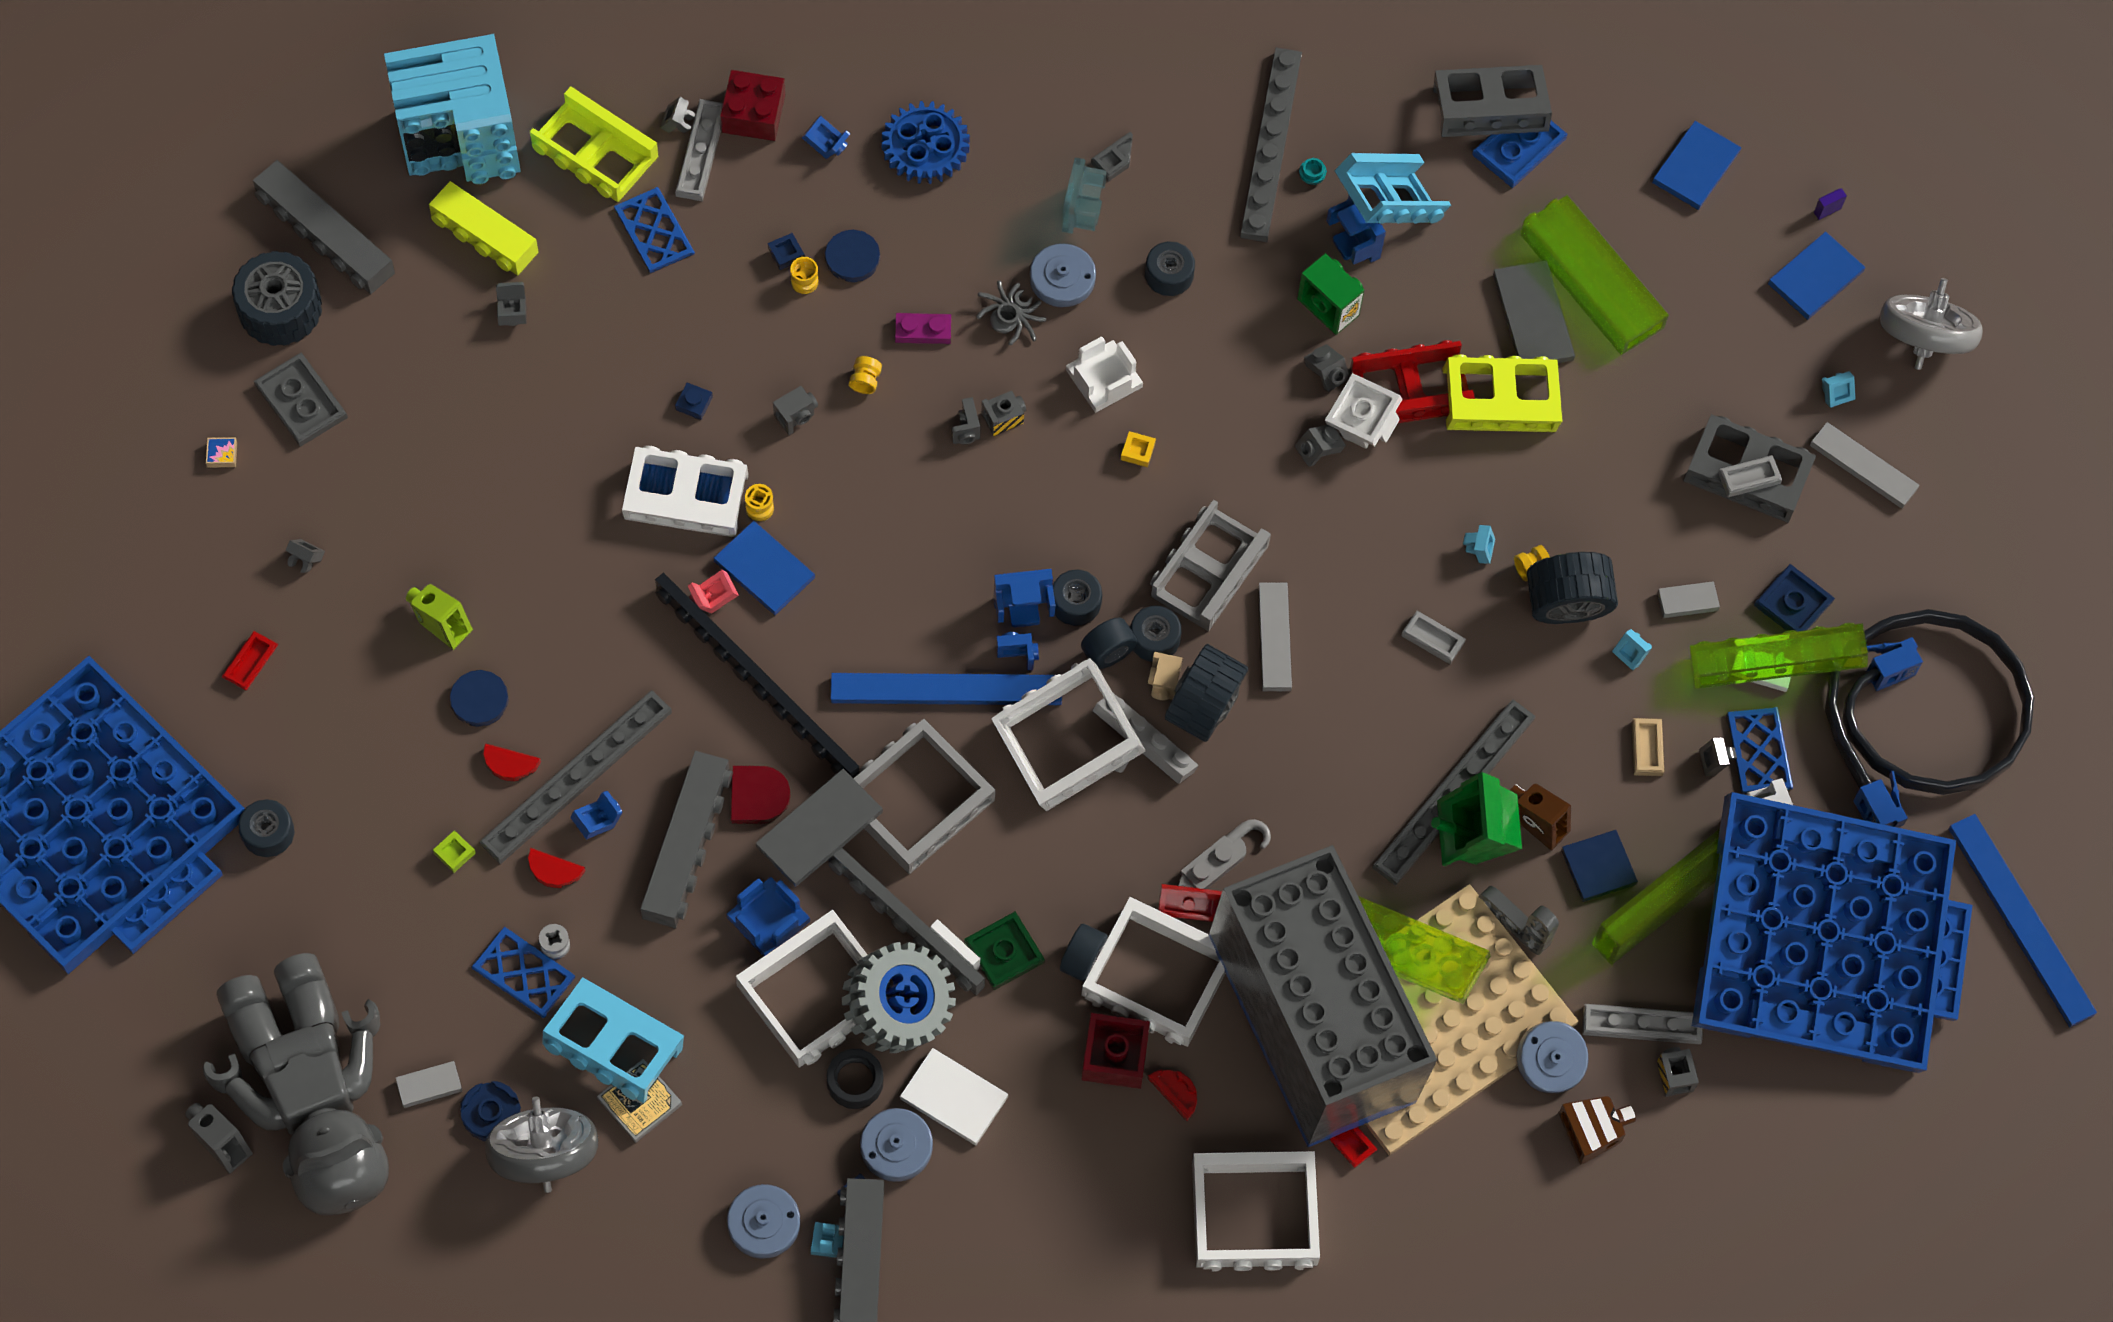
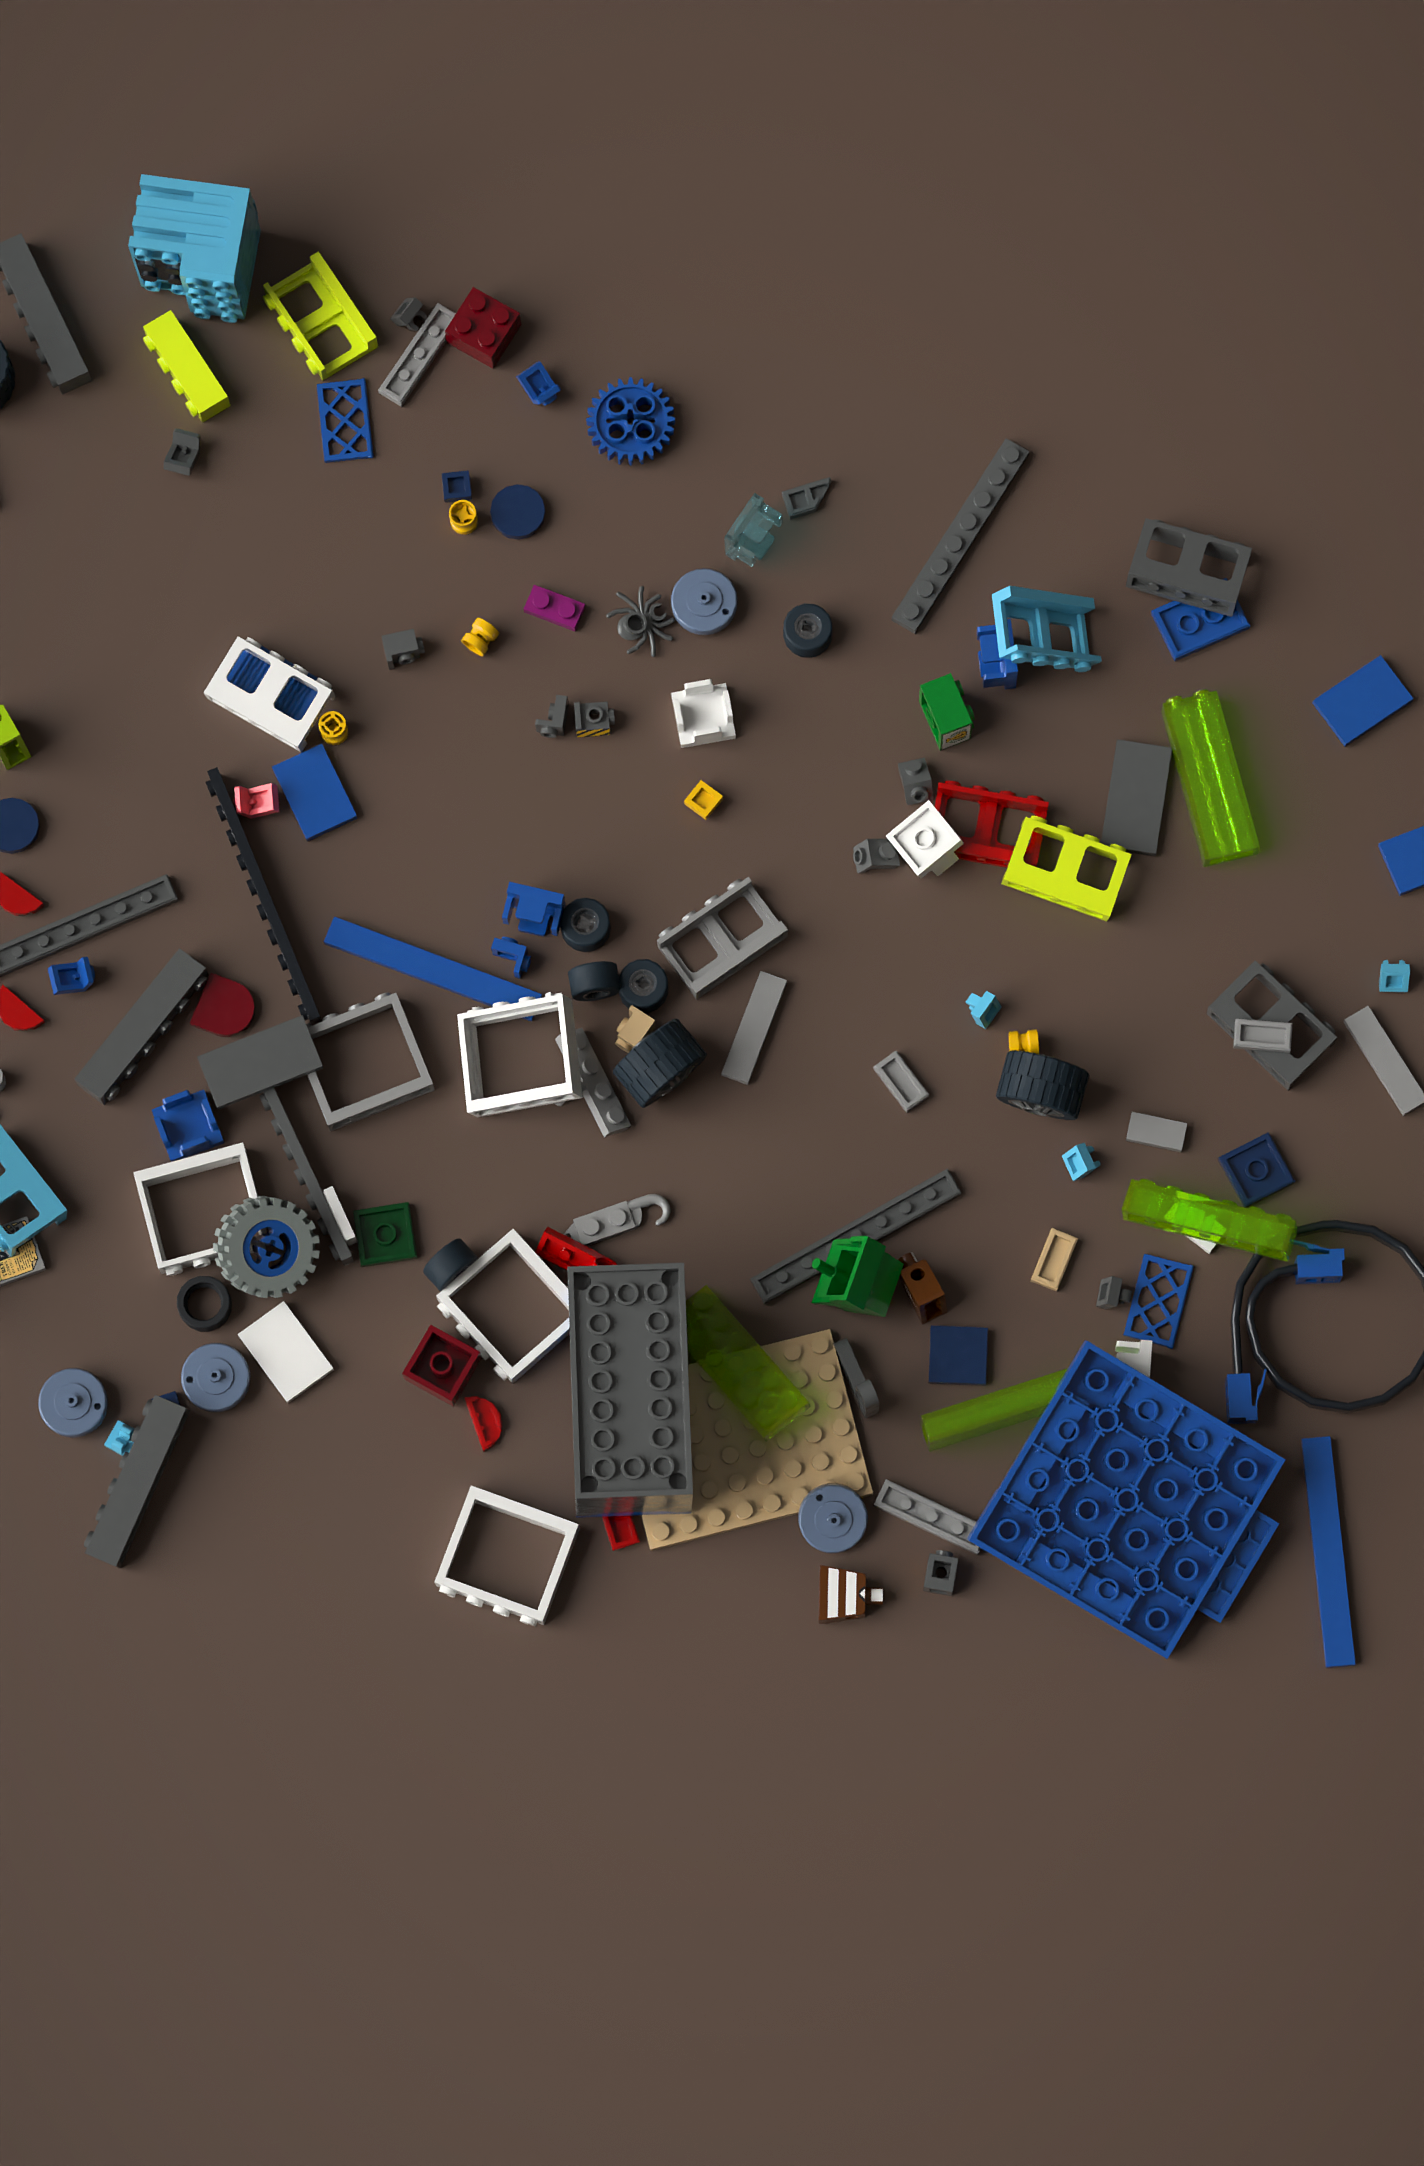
camera: 30 degrees right, 10 degrees up
(694, 401) = (314, 605): dark blue plate -> none
(1312, 171) = (987, 578): teal plate -> none

